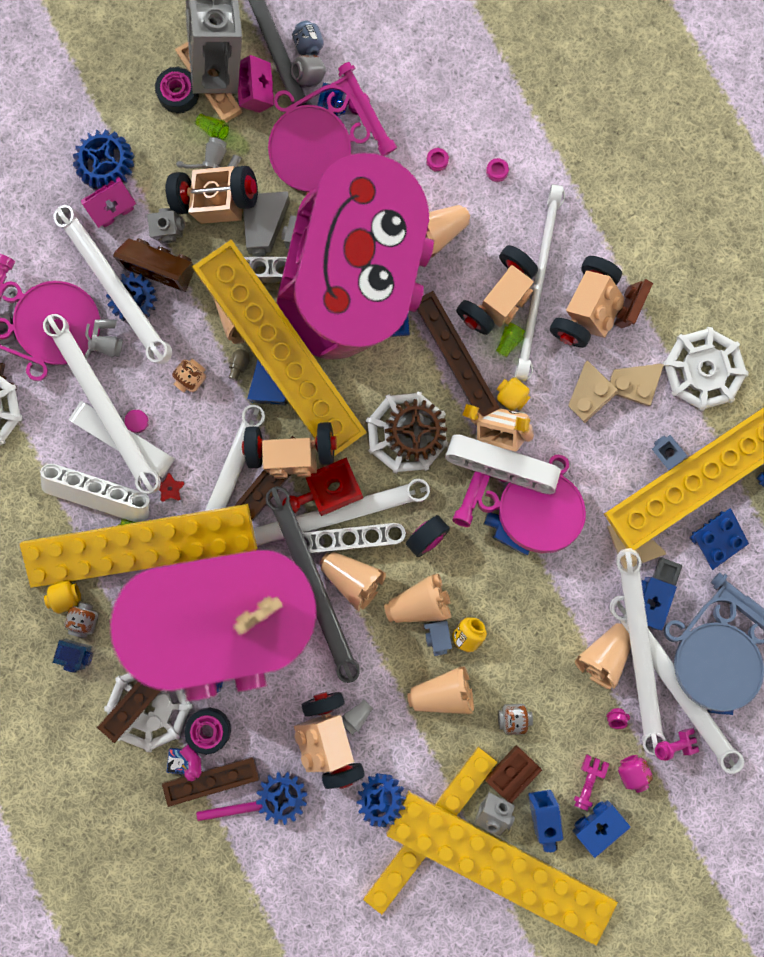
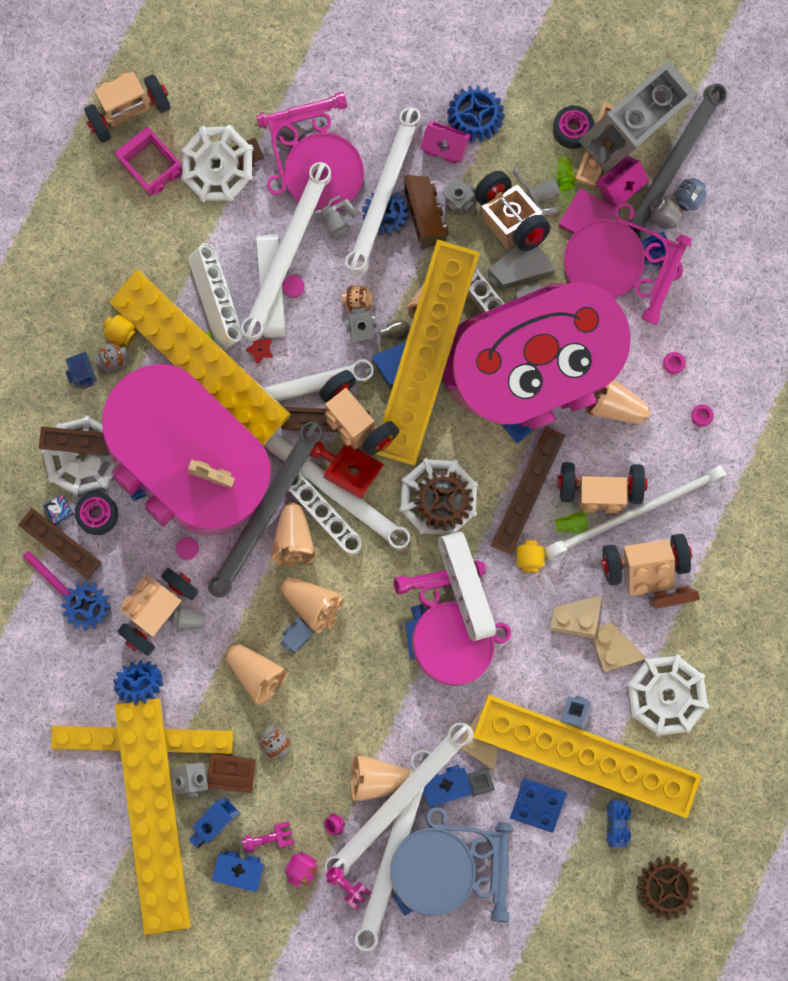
camera: 55 degrees right, 5 degrees down
(194, 762) = (65, 520): dark pink arm -> none
(220, 391) = (363, 331): none -> light grey brick
(255, 134) = (585, 209): none -> dark pink tile
(295, 674) = (187, 548): none -> dark pink tile
(427, 536) = (368, 570): black wheel -> none
(469, 634) = (315, 658): yellow head -> none
(501, 427) = (495, 565): light nougat torso -> none

